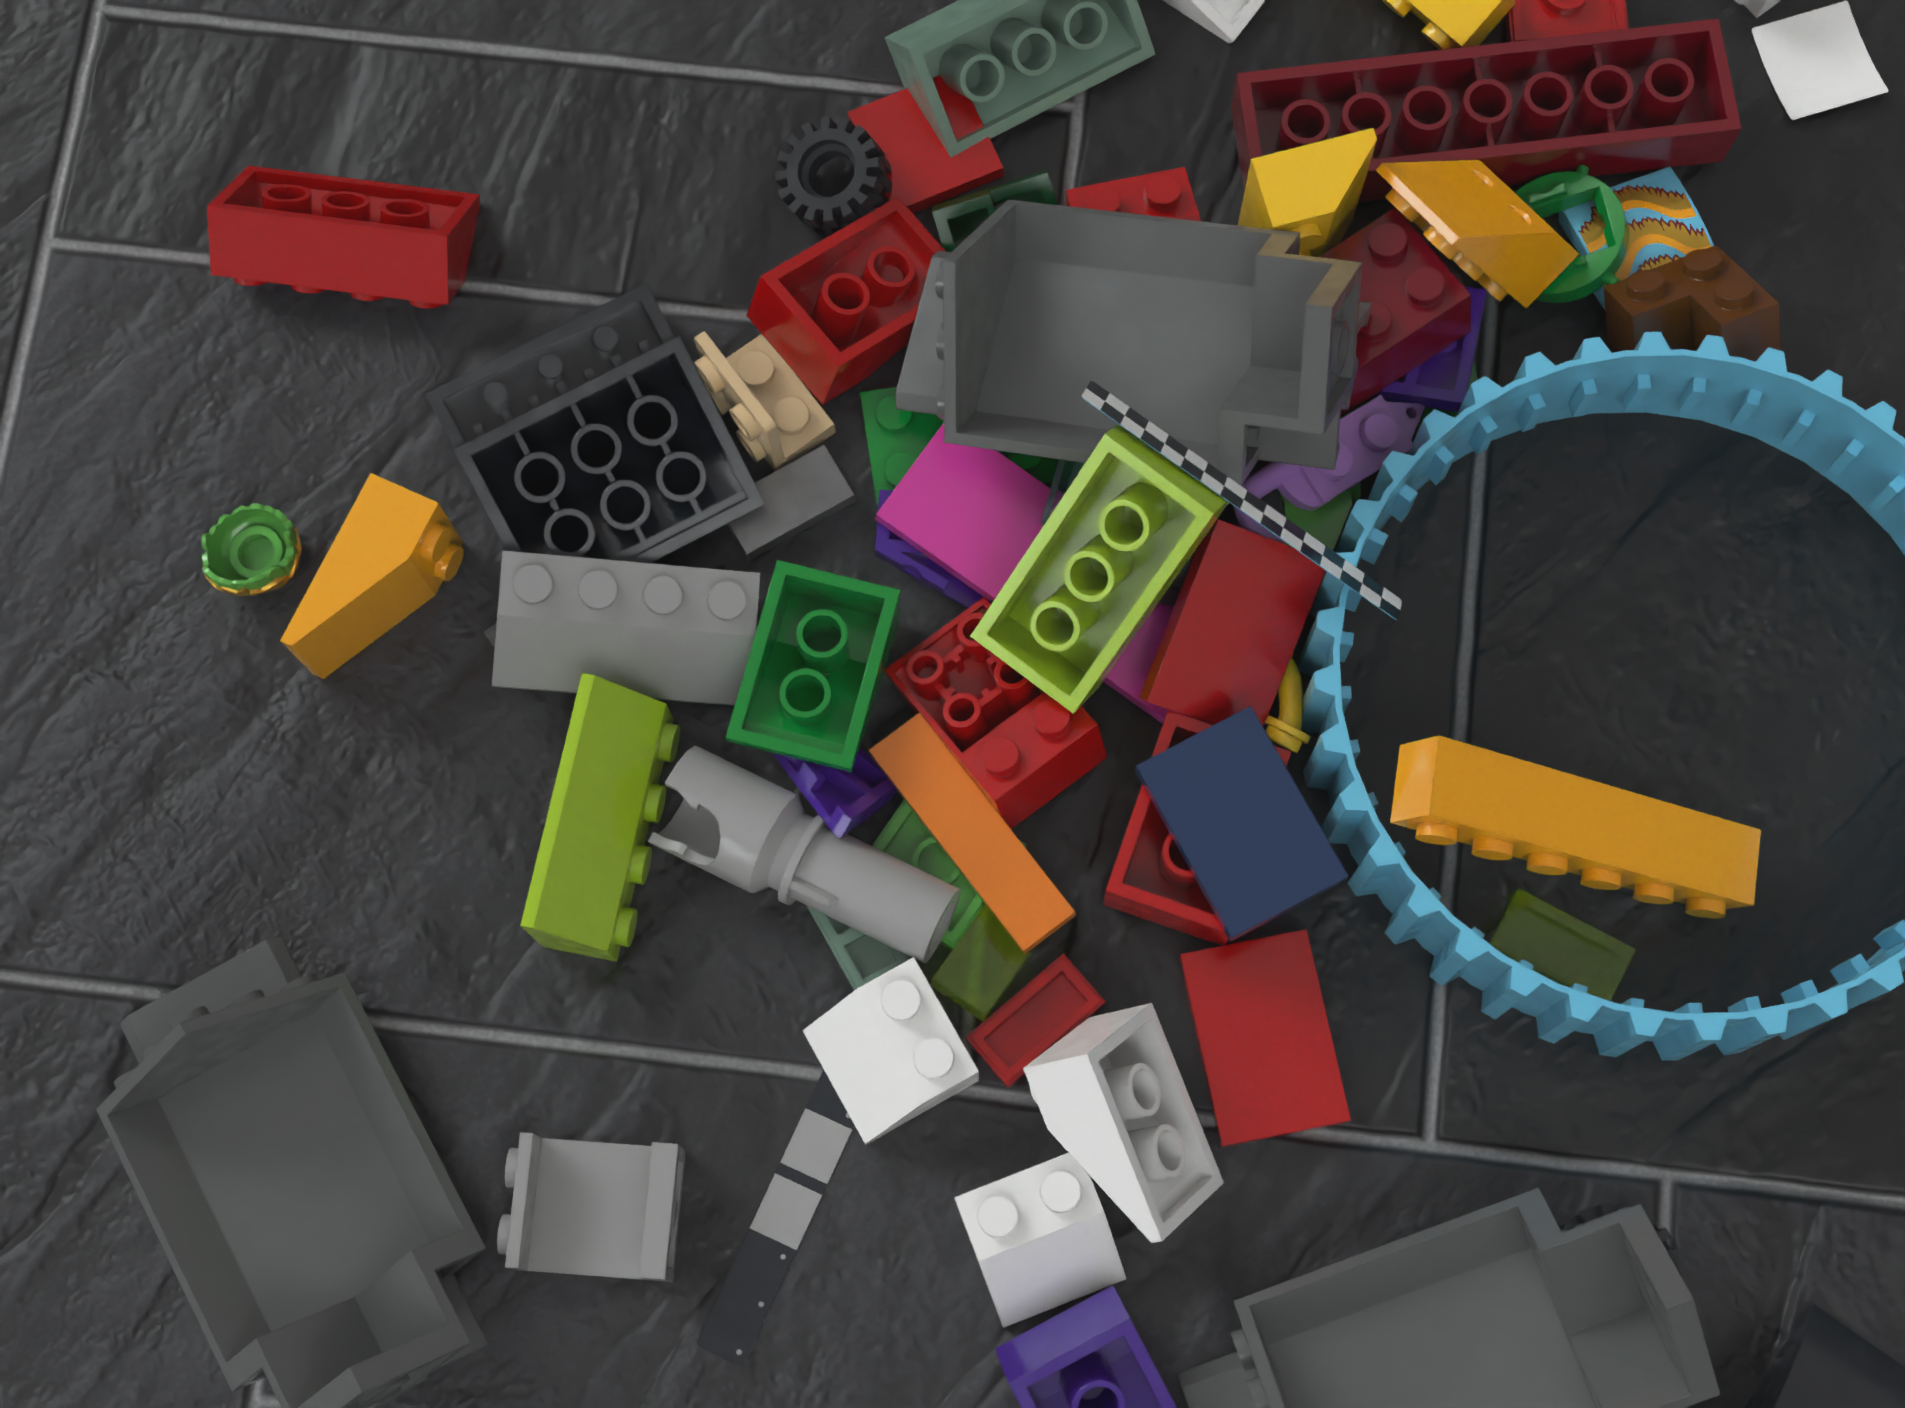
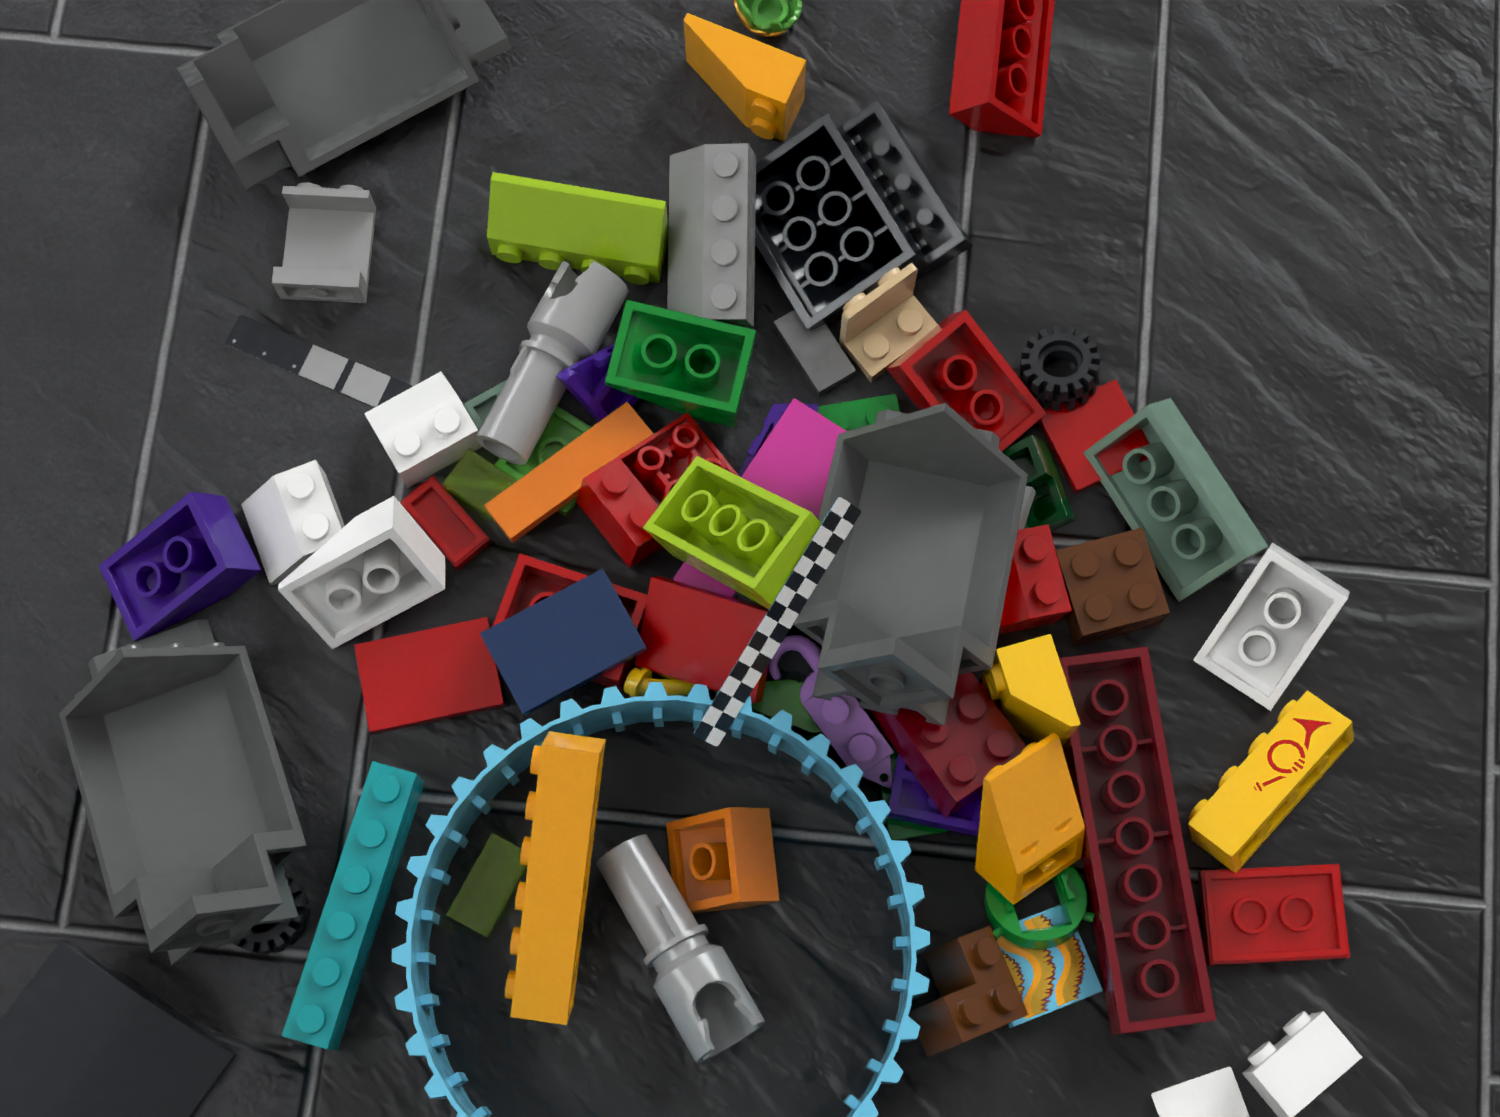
camera: 85 degrees right, 0 degrees up
(1144, 120) = (1111, 587): none -> reddish brown brick
(1523, 631) = (723, 859): none -> orange slope
(1608, 1131) = (354, 907): none -> teal brick
(1684, 663) = (693, 975): none -> light grey piece

